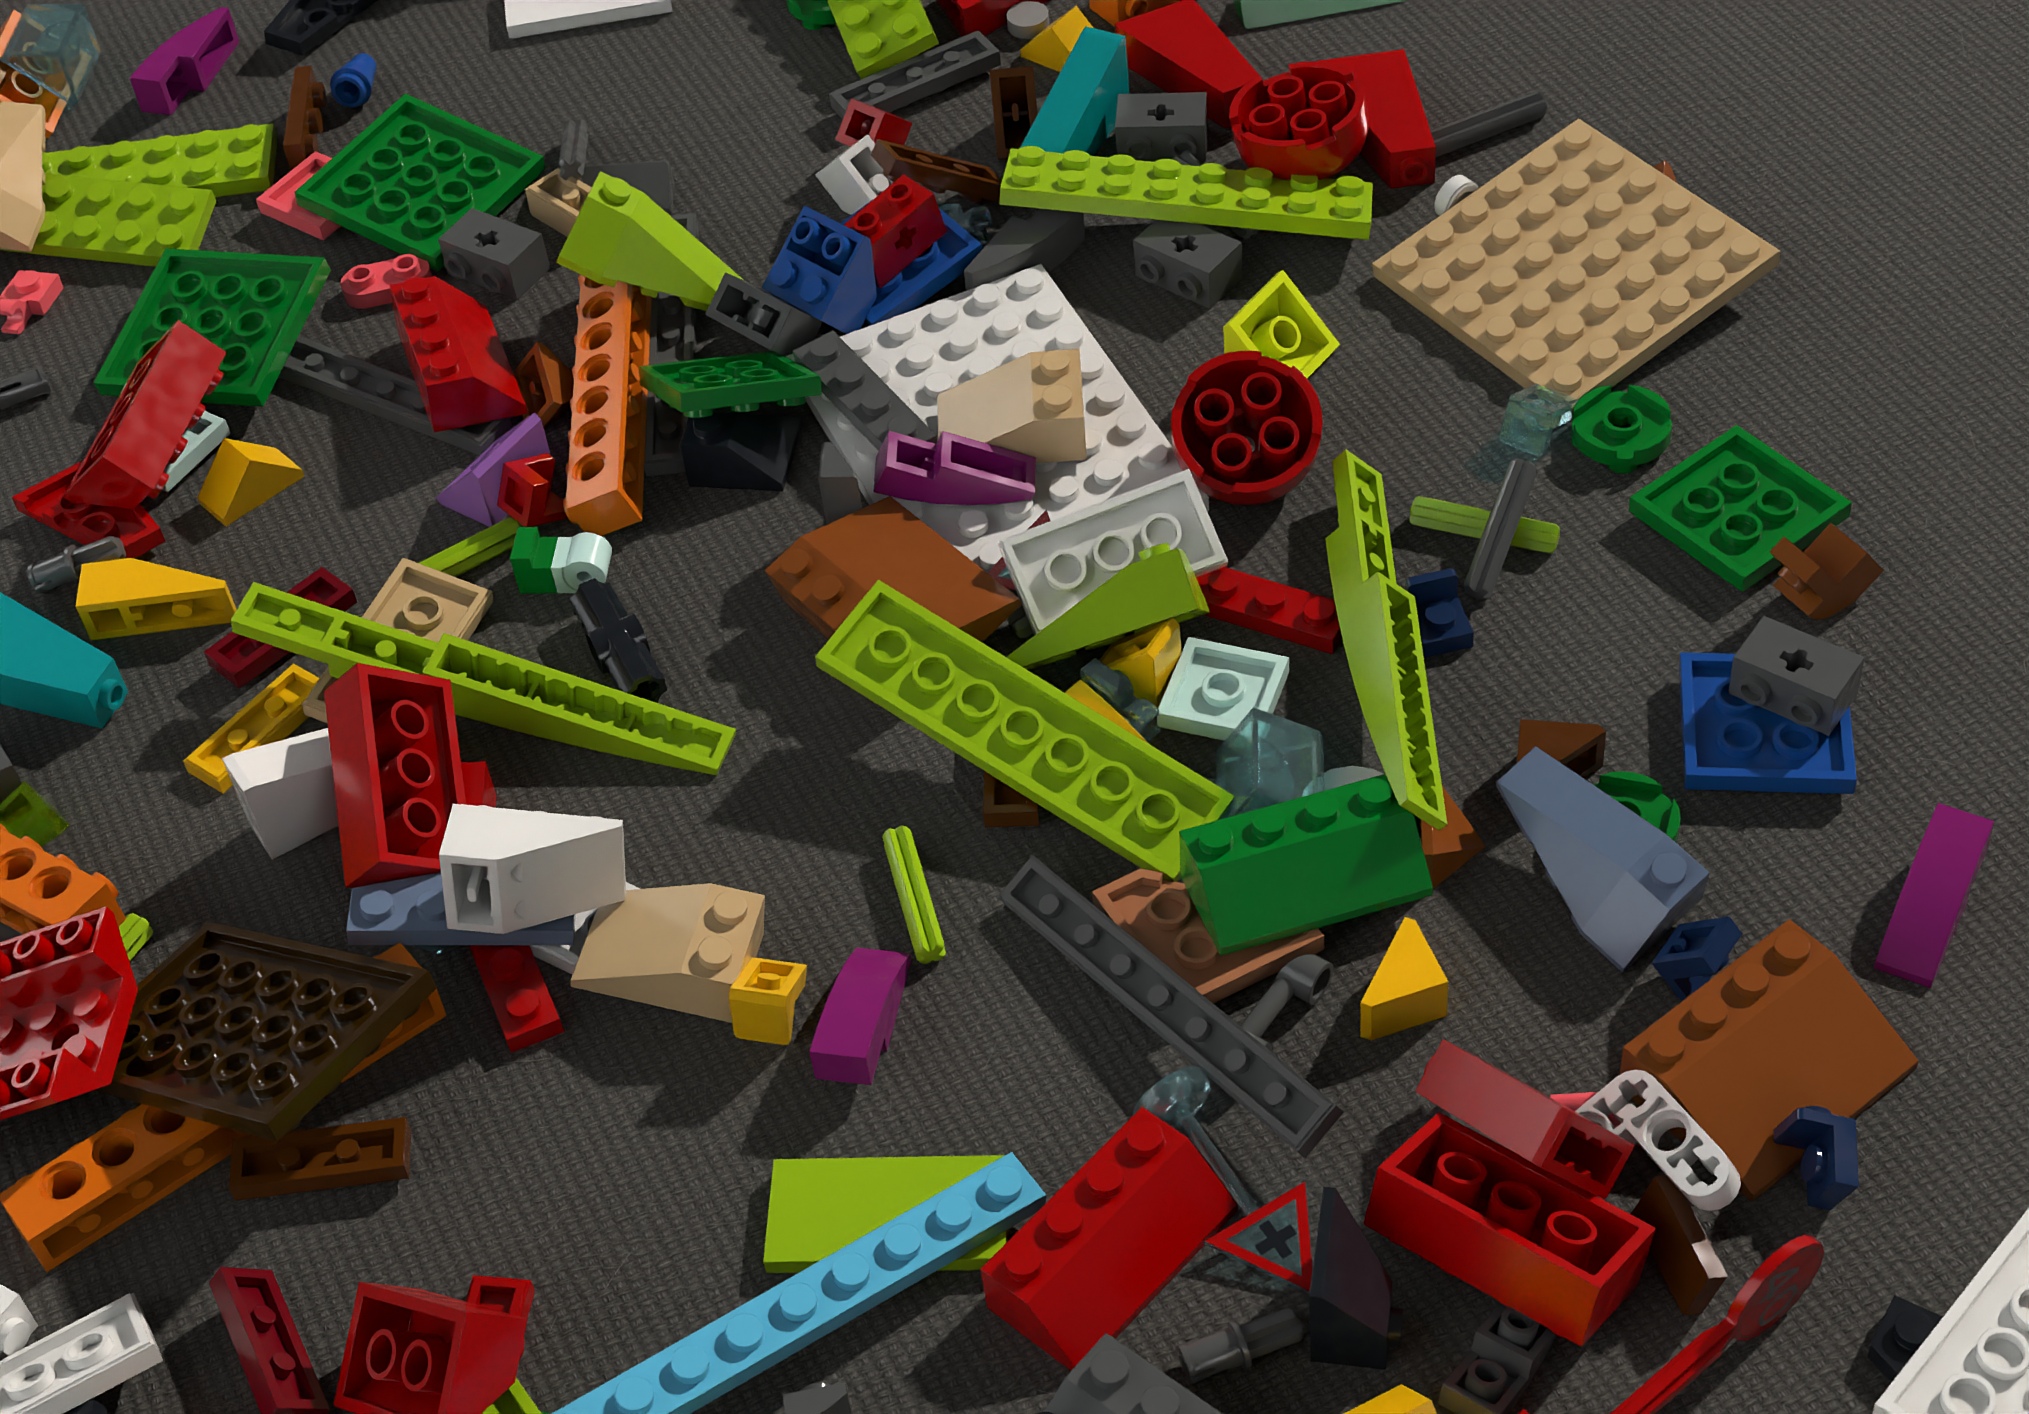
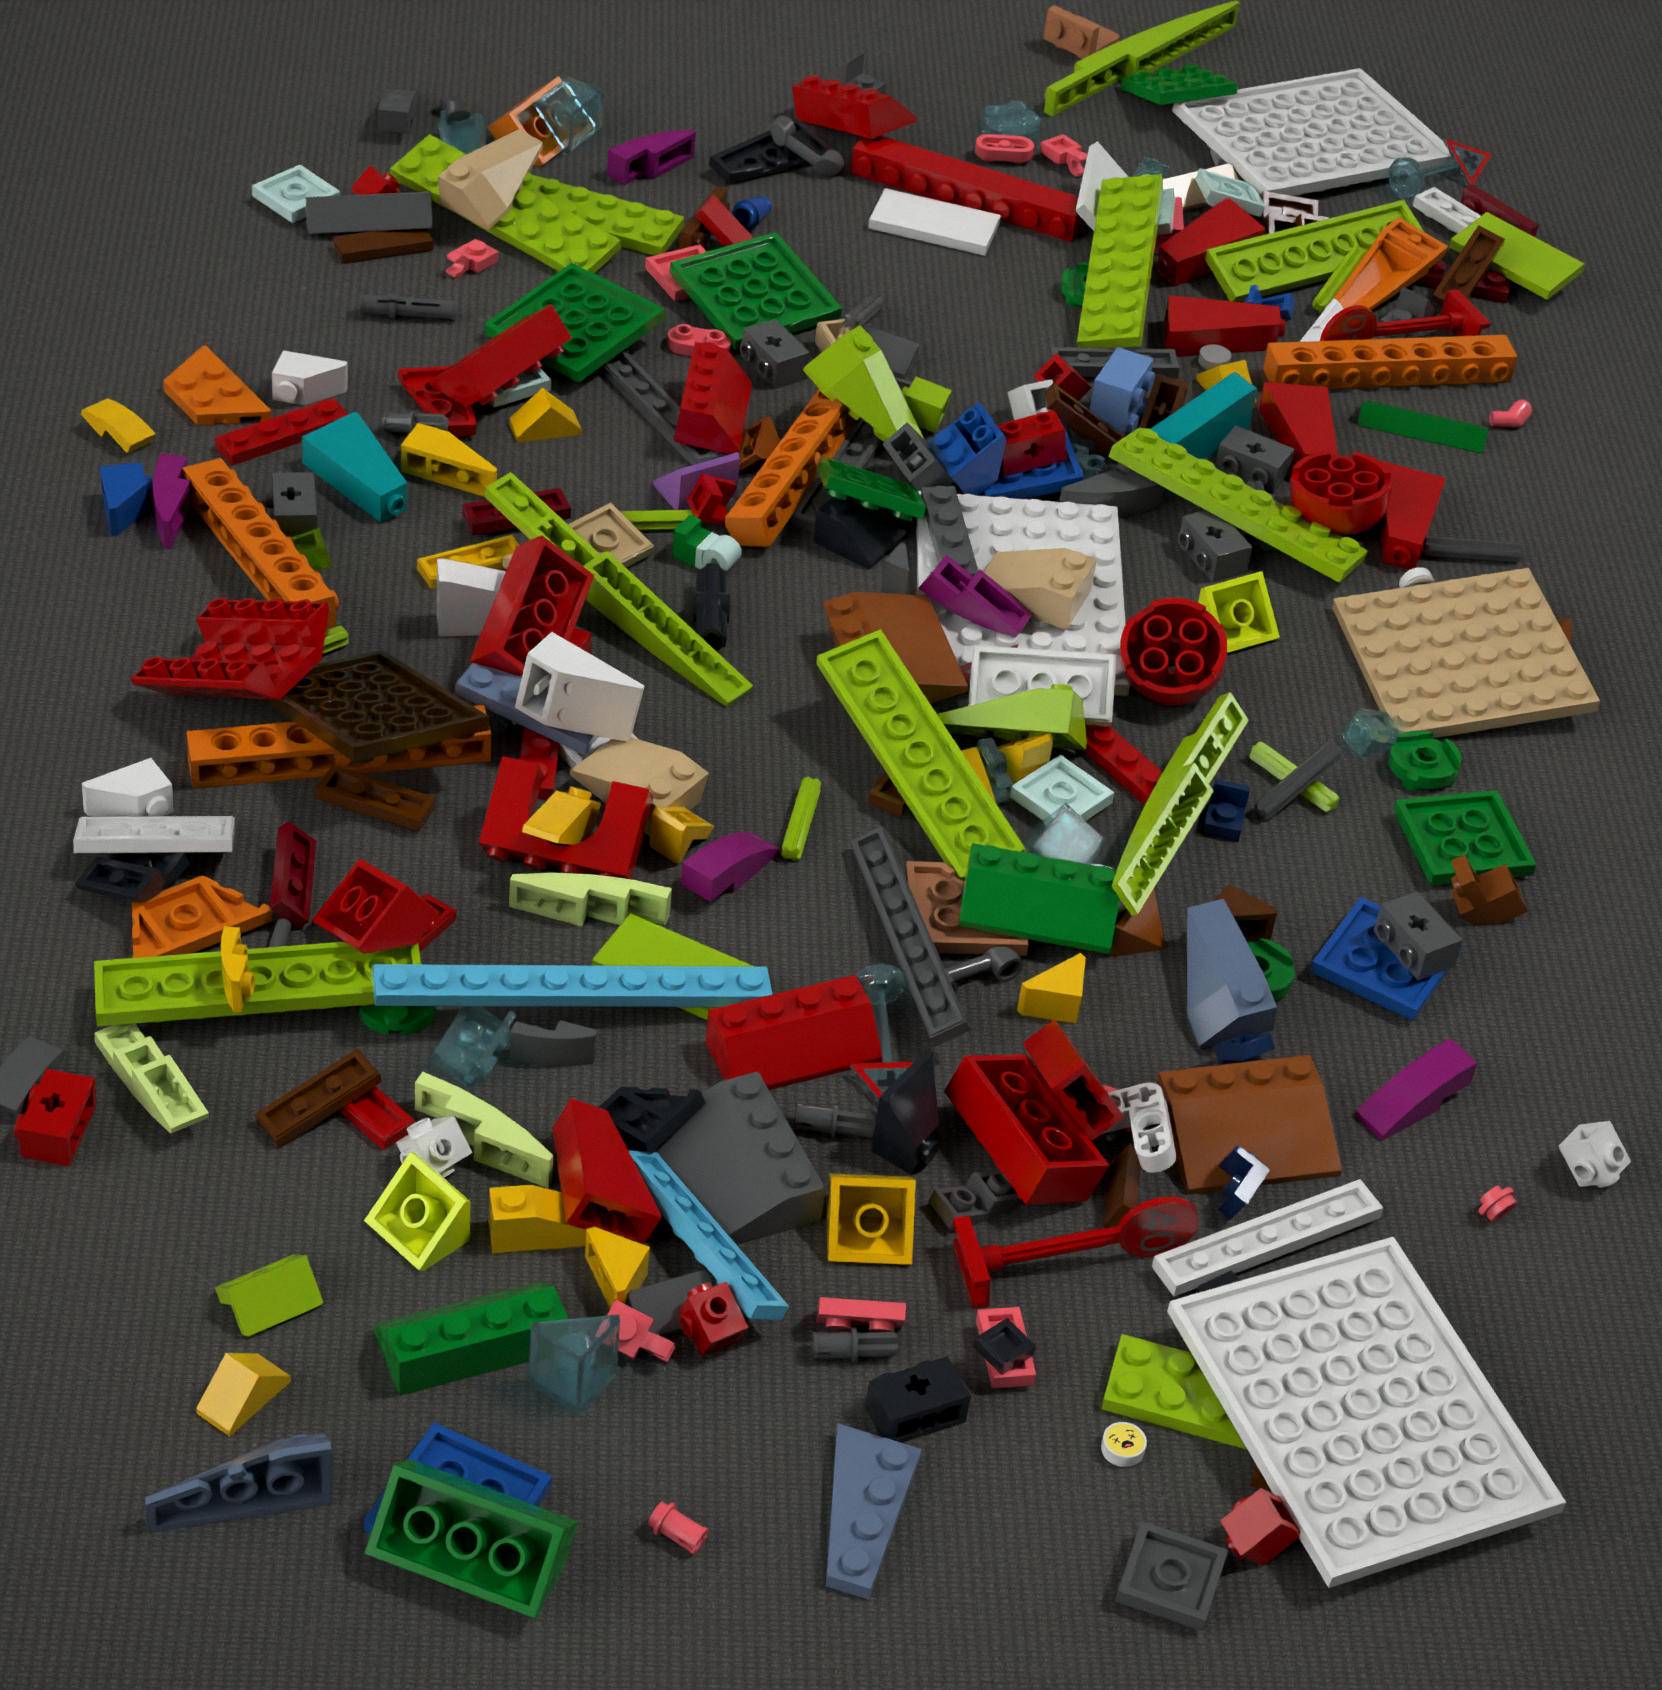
camera: 15 degrees right, 5 degrees down
(330, 111) = (722, 222): none -> red tile
(544, 1119) = (607, 852): none -> red arch
(610, 1068) = (565, 817): none -> yellow slope
(682, 1174) = (579, 896): none -> yellowish green slope
(726, 233) = (927, 403): none -> lime brick
(959, 108) = (1122, 389): none -> medium blue brick
(1901, 1221) = (1267, 1237): none -> white plate

